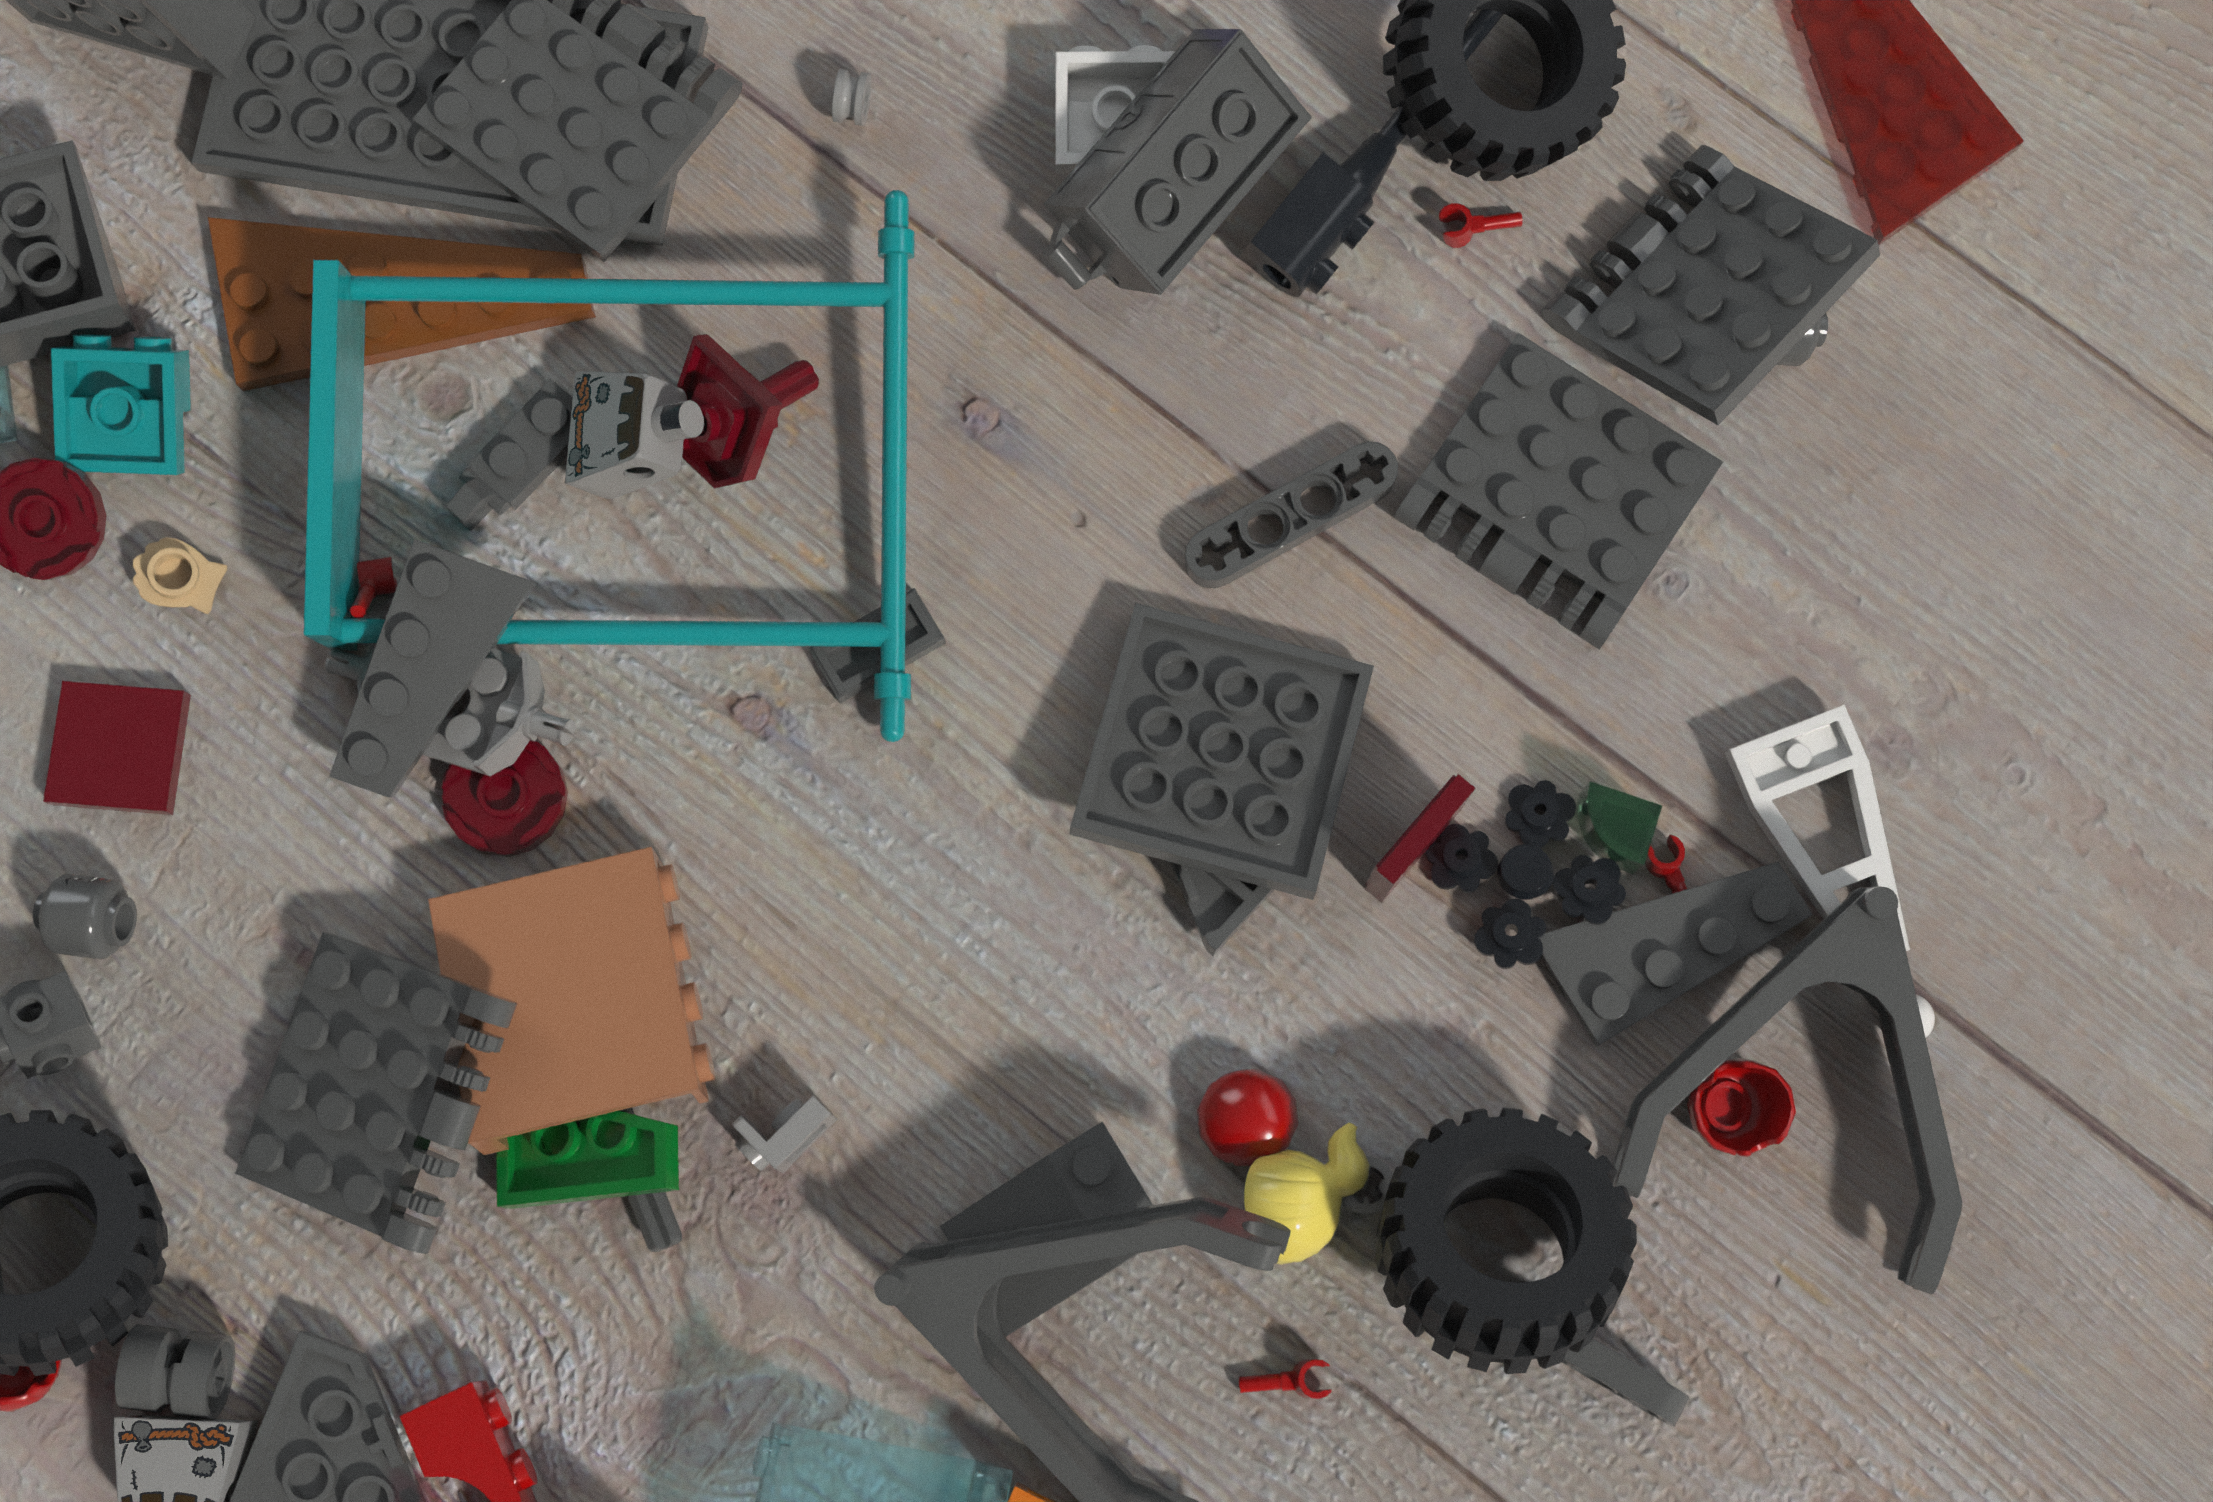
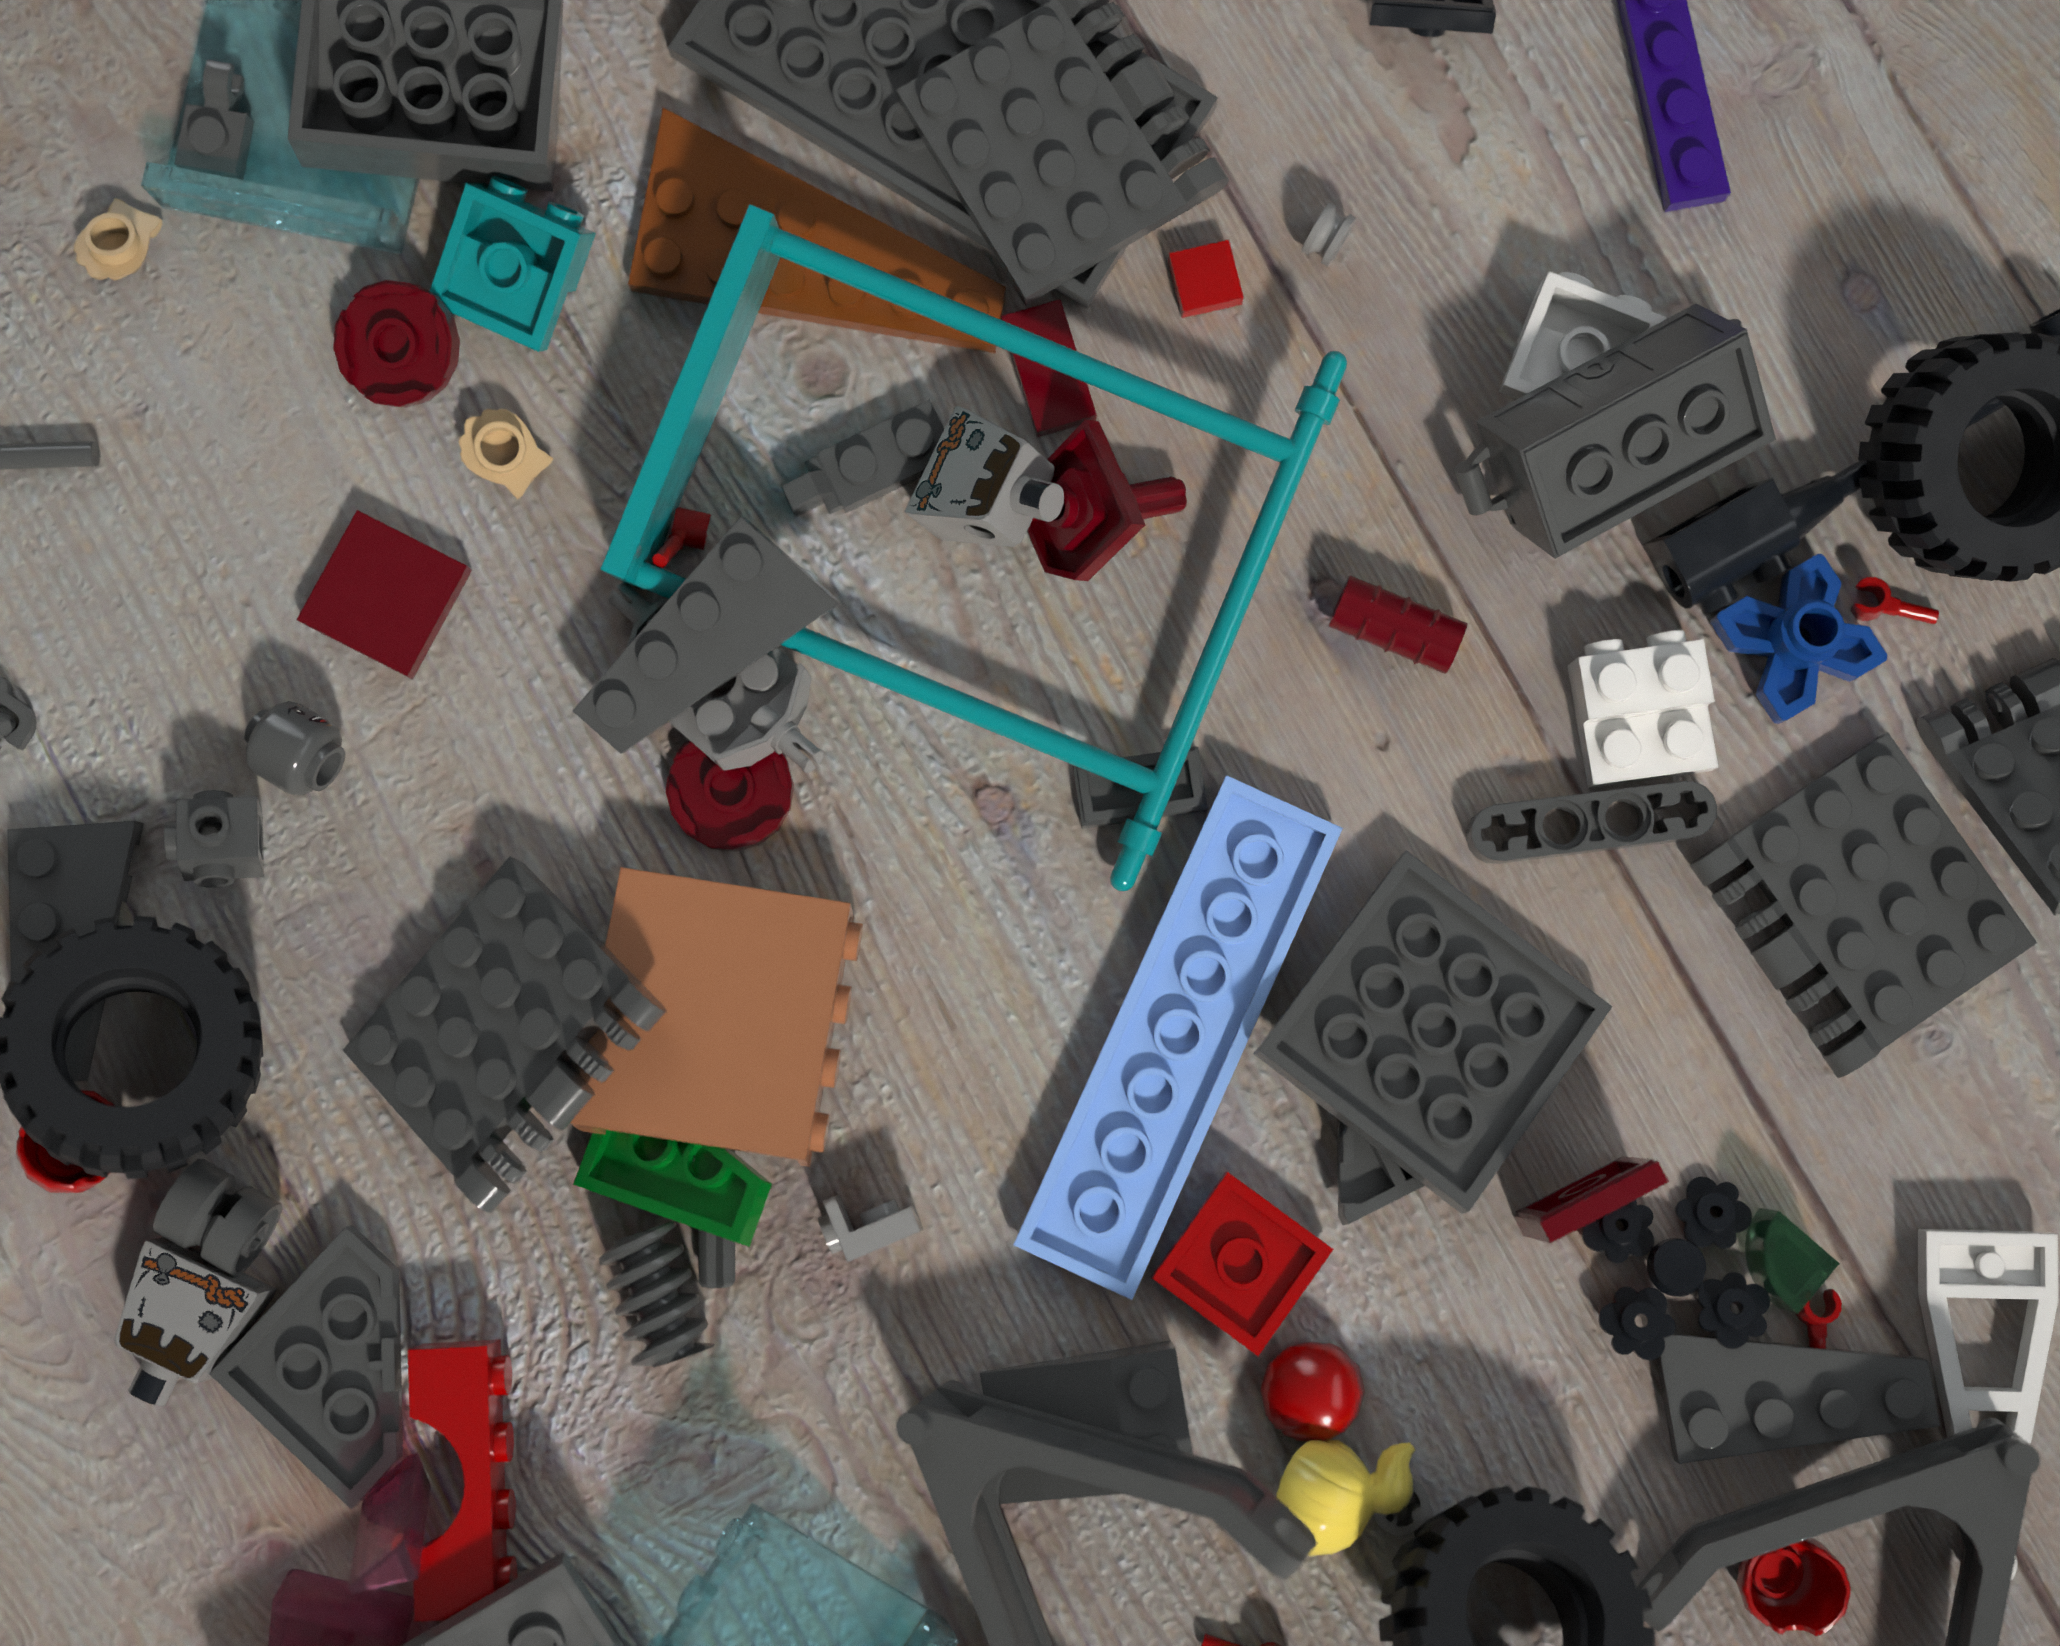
camera: 20 degrees right, 5 degrees up
(610, 1277) = (655, 1297): none -> dark grey piece
(657, 329) = (1051, 397): none -> dark red tile
(758, 178) = (1205, 278): none -> red tile
(997, 852) = (1178, 1037): none -> light blue plate
(1048, 409) = (1398, 624): none -> dark red axle
(1136, 1027) = (1242, 1263): none -> red plate
(1297, 398) = (1643, 709): none -> white plate
(1407, 283) = (1799, 638): none -> blue plant

